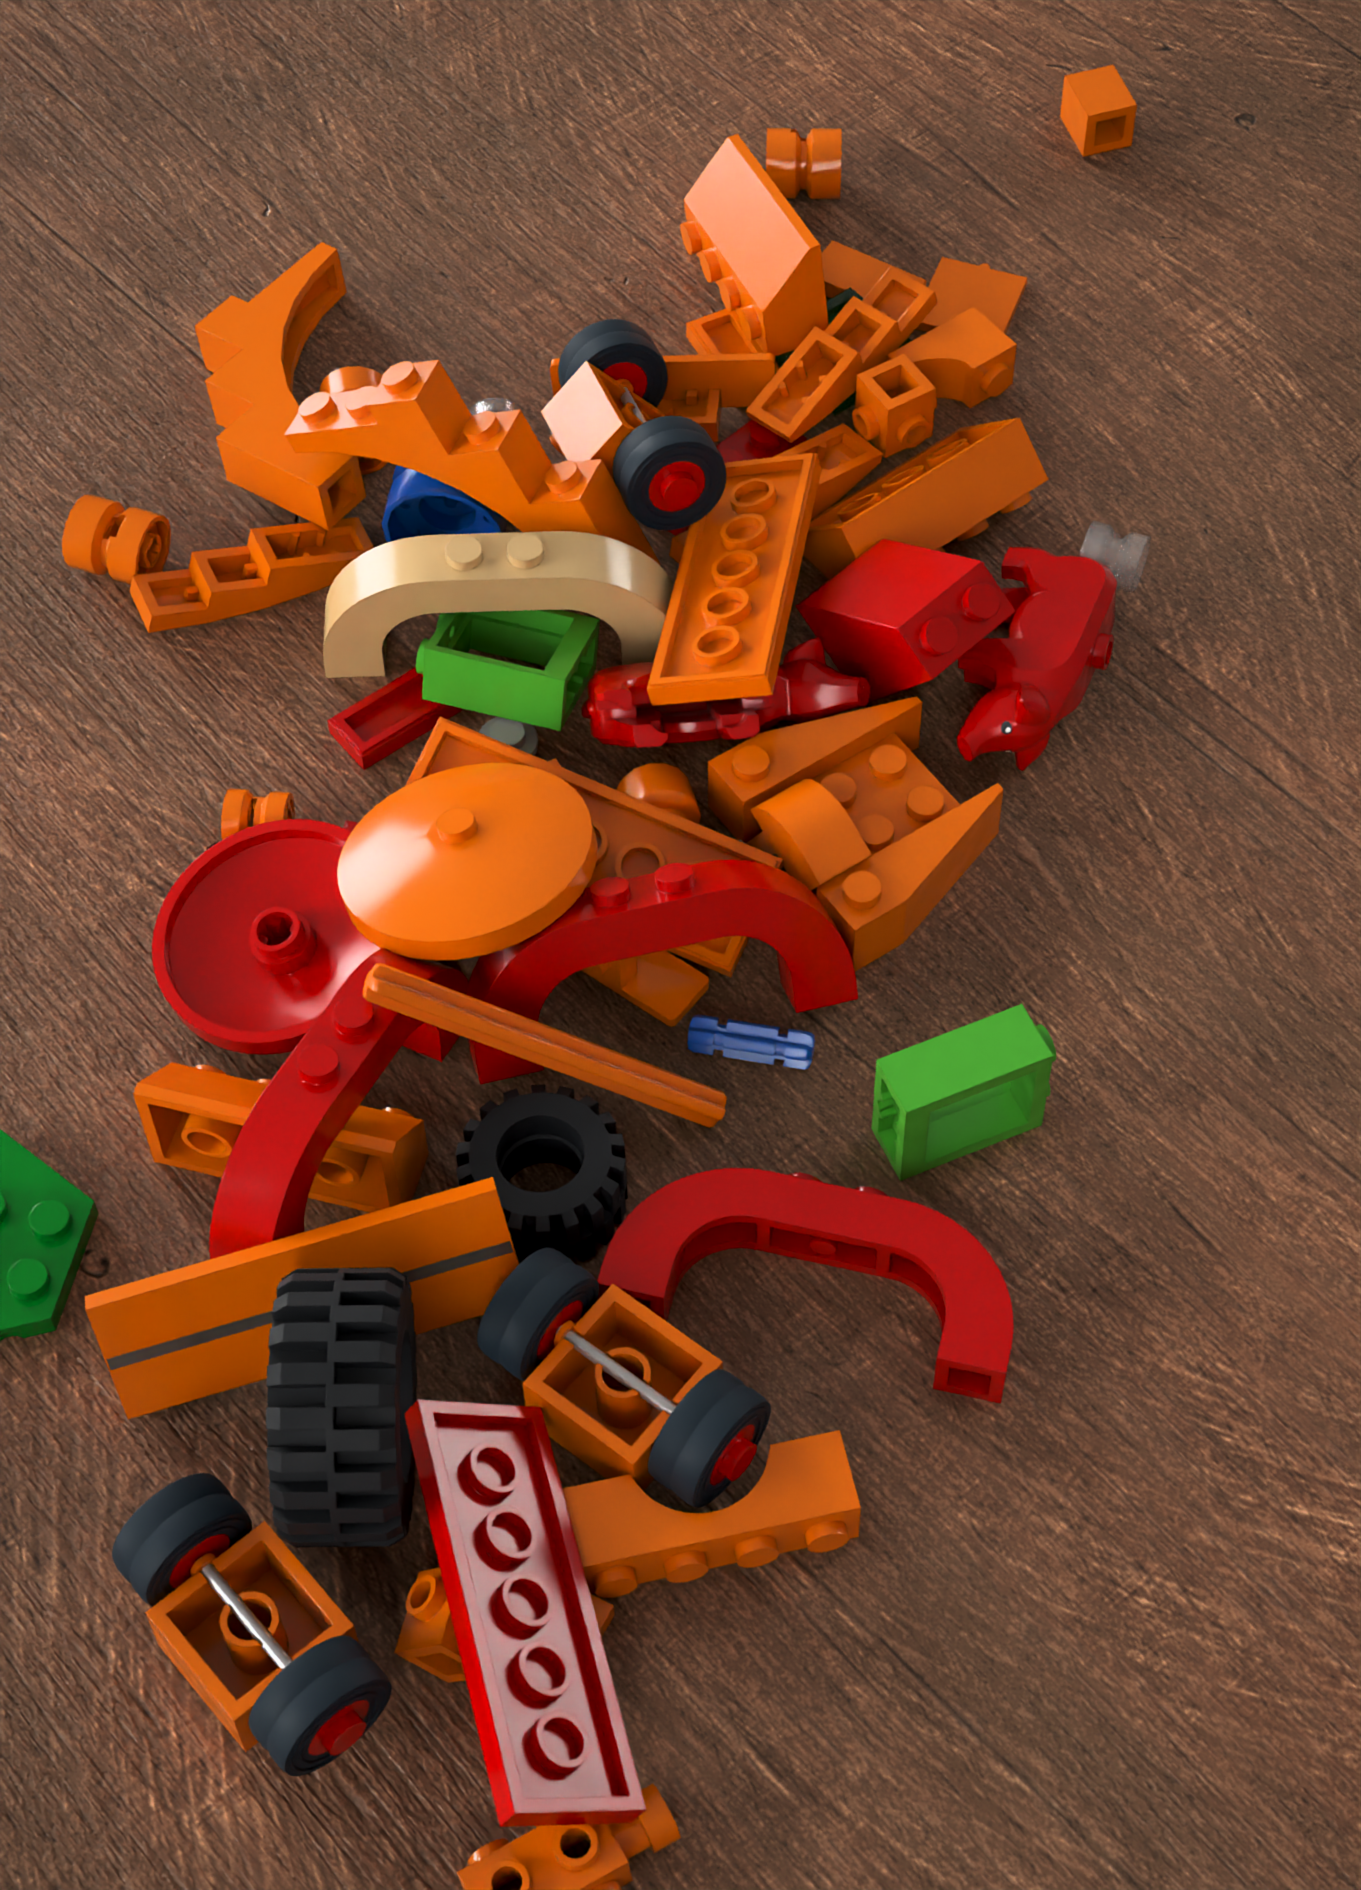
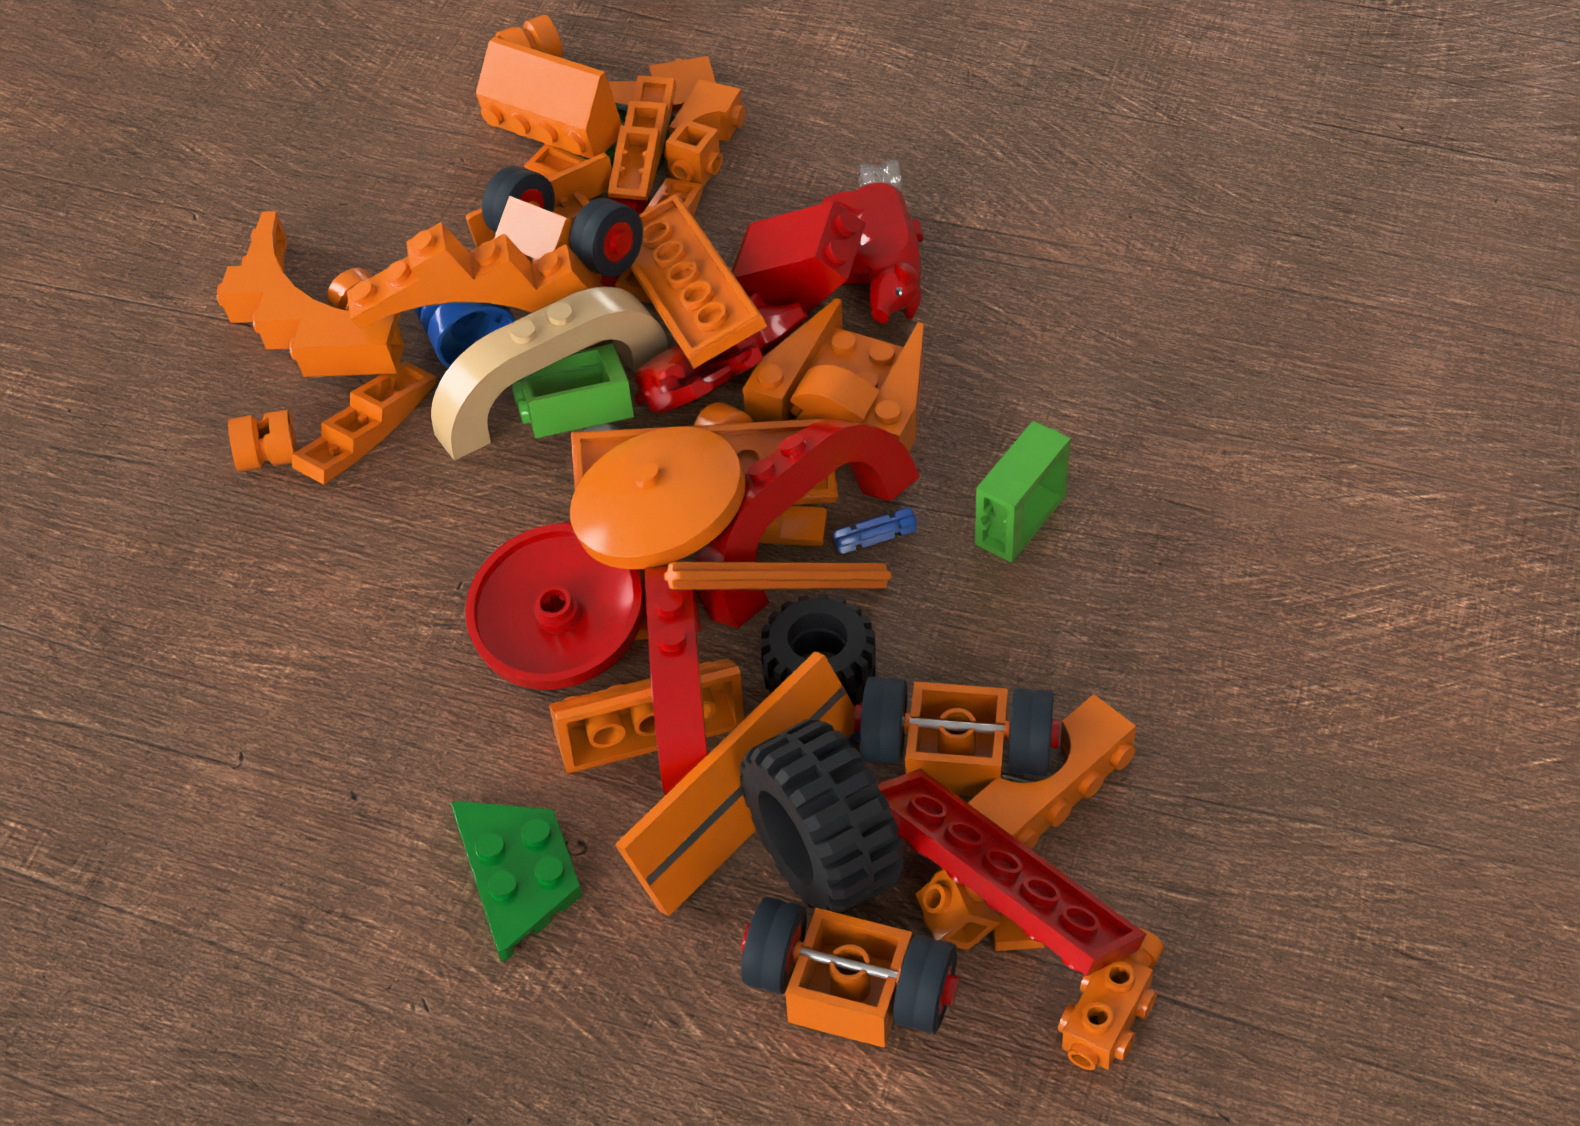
camera: 30 degrees left, 5 degrees down
(245, 810) = (476, 551): orange wheel -> none
(387, 720) = (515, 462): red tile -> none
(830, 1227) = (1014, 596): red arch -> none
(932, 496) = (753, 188): orange slope -> none

